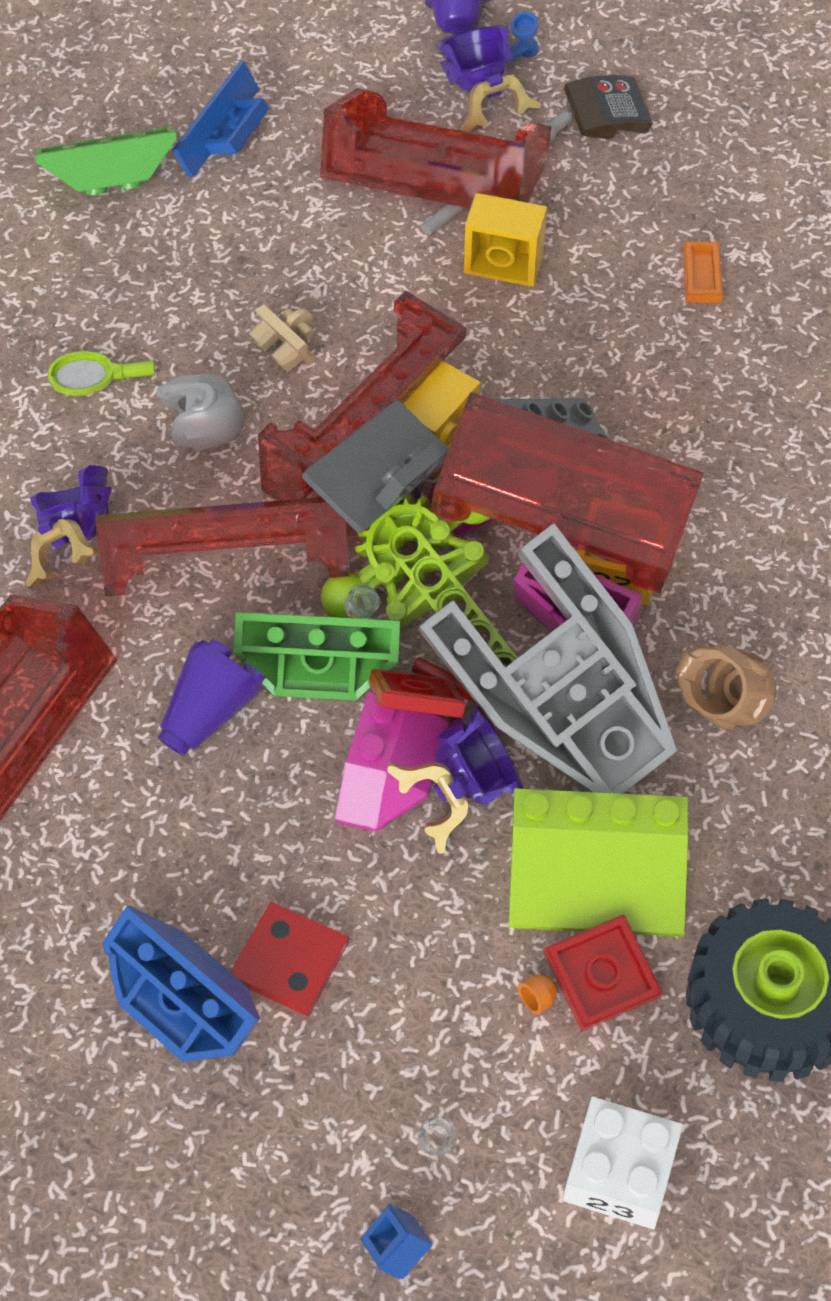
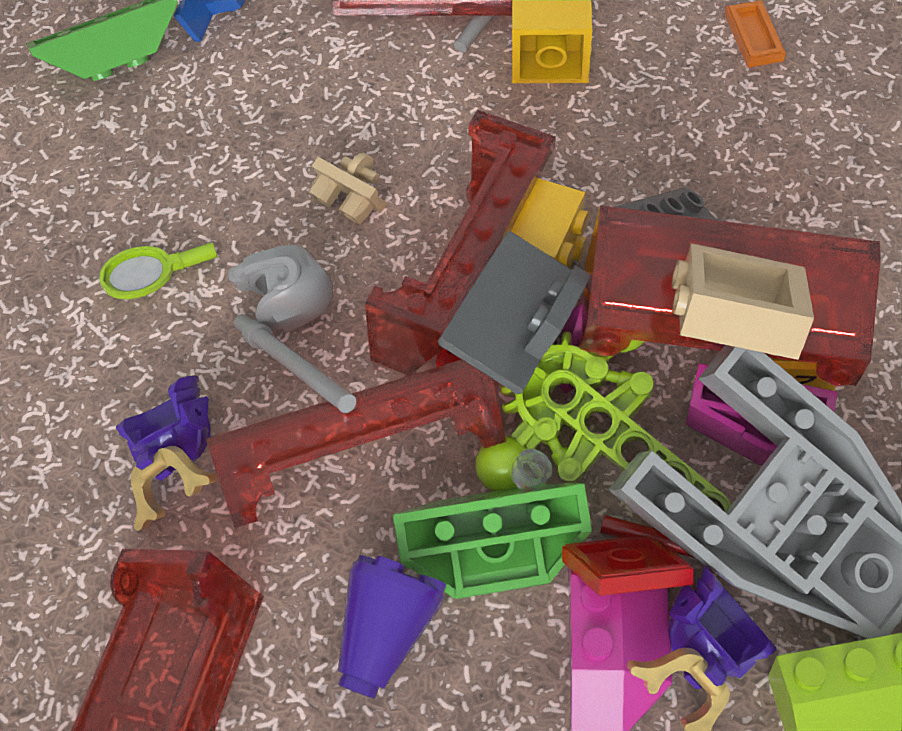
camera: 10 degrees left, 0 degrees up
(171, 449) = (261, 337): none -> light grey bar
(558, 493) = (742, 301): none -> tan window

